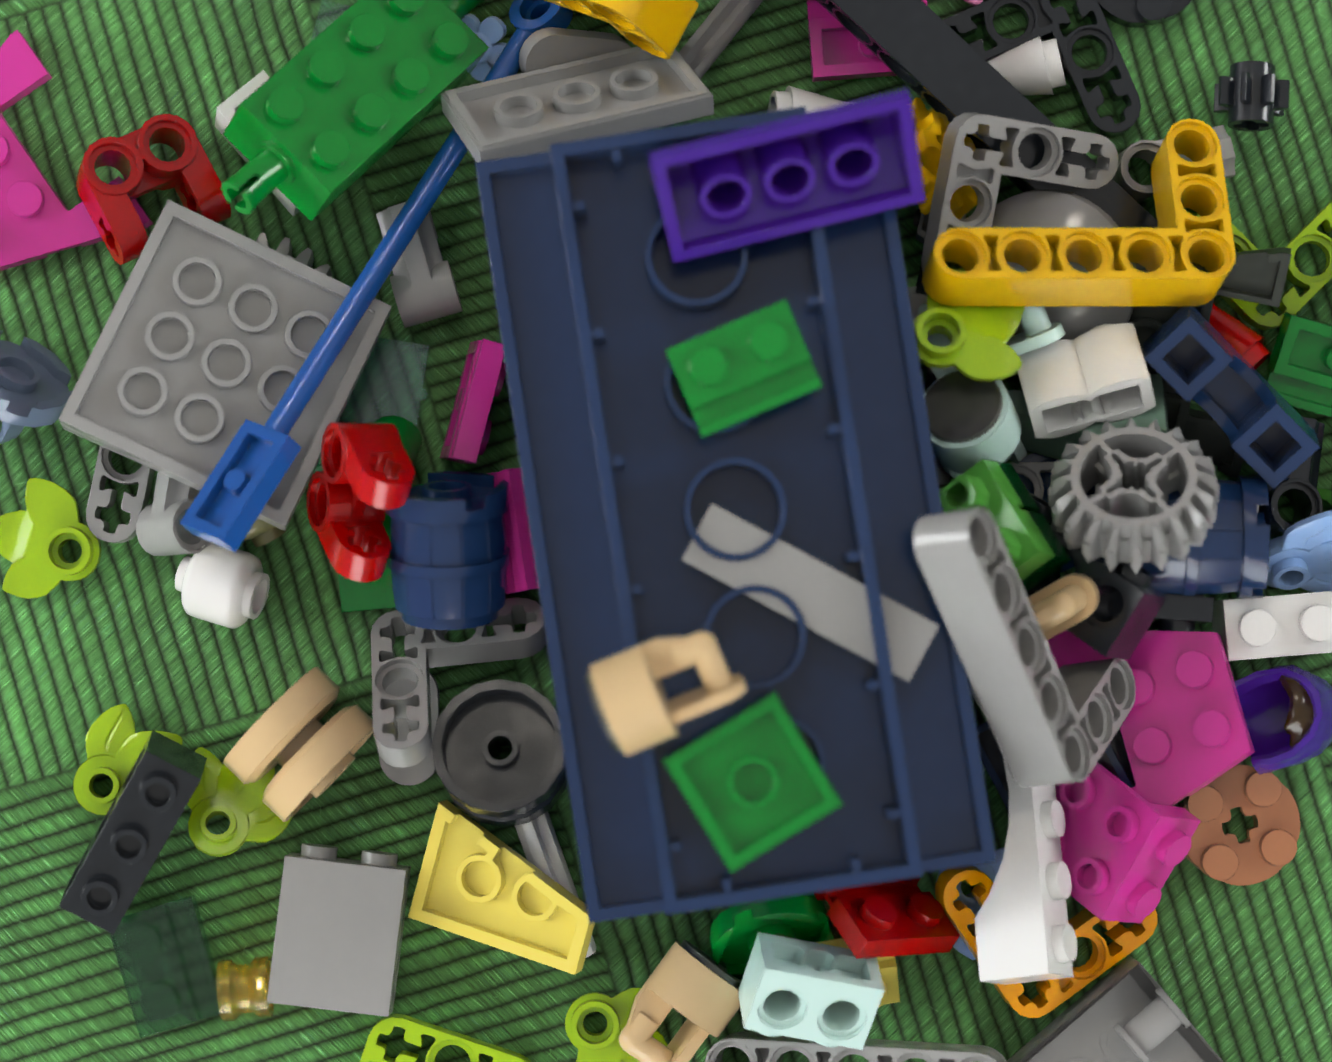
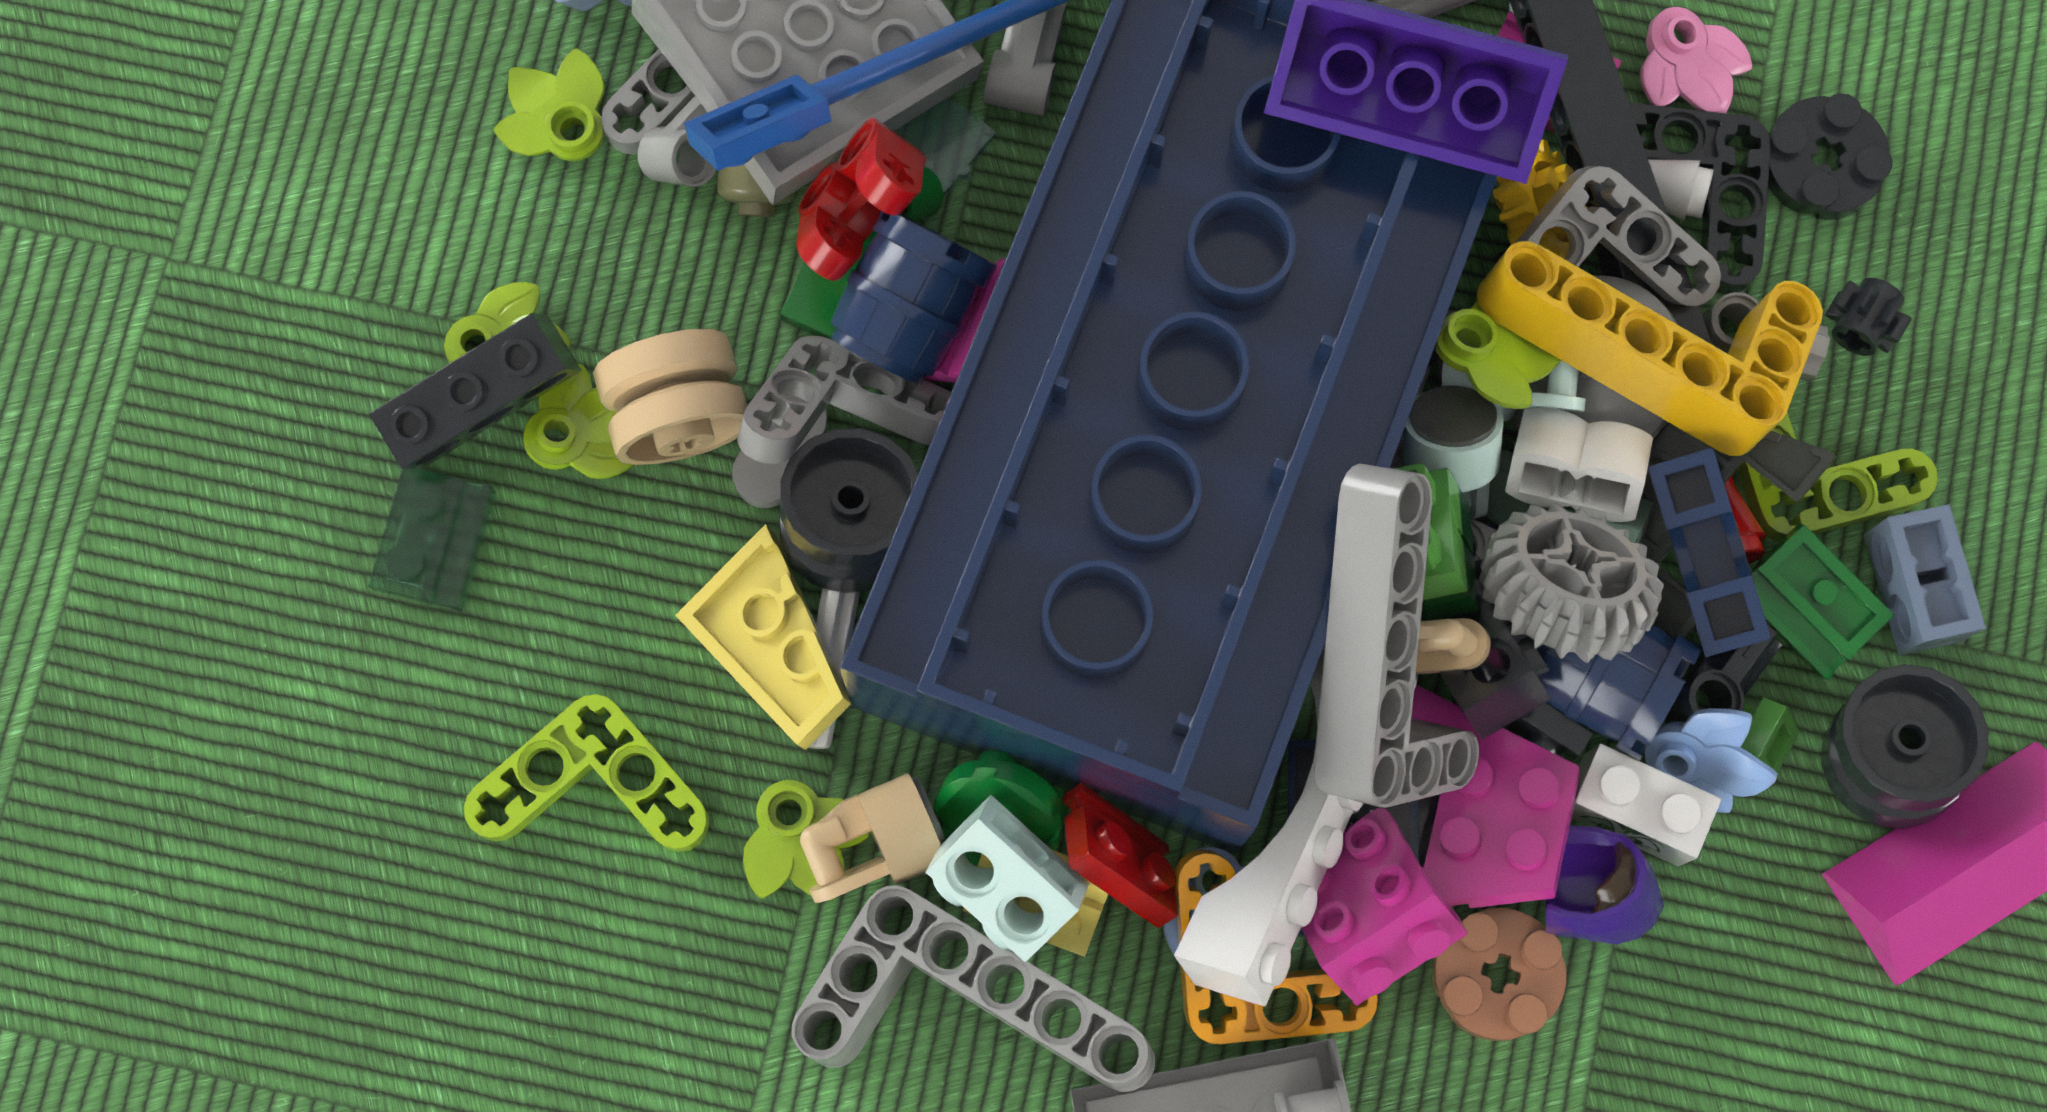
camera: 30 degrees right, 10 degrees down
(222, 586) = (688, 229): white head -> none
(243, 988) = (489, 594): clear yellow wheel -> none
(339, 931) = (606, 590): light grey brick -> none
(479, 383) = (988, 216): dark pink plate -> none
(634, 701) = (1003, 459): tan piece -> none
(743, 368) = (1275, 238): green plate -> none
(752, 782) = (1069, 607): green plate -> none
(825, 597) = (1234, 494): light grey tile -> none

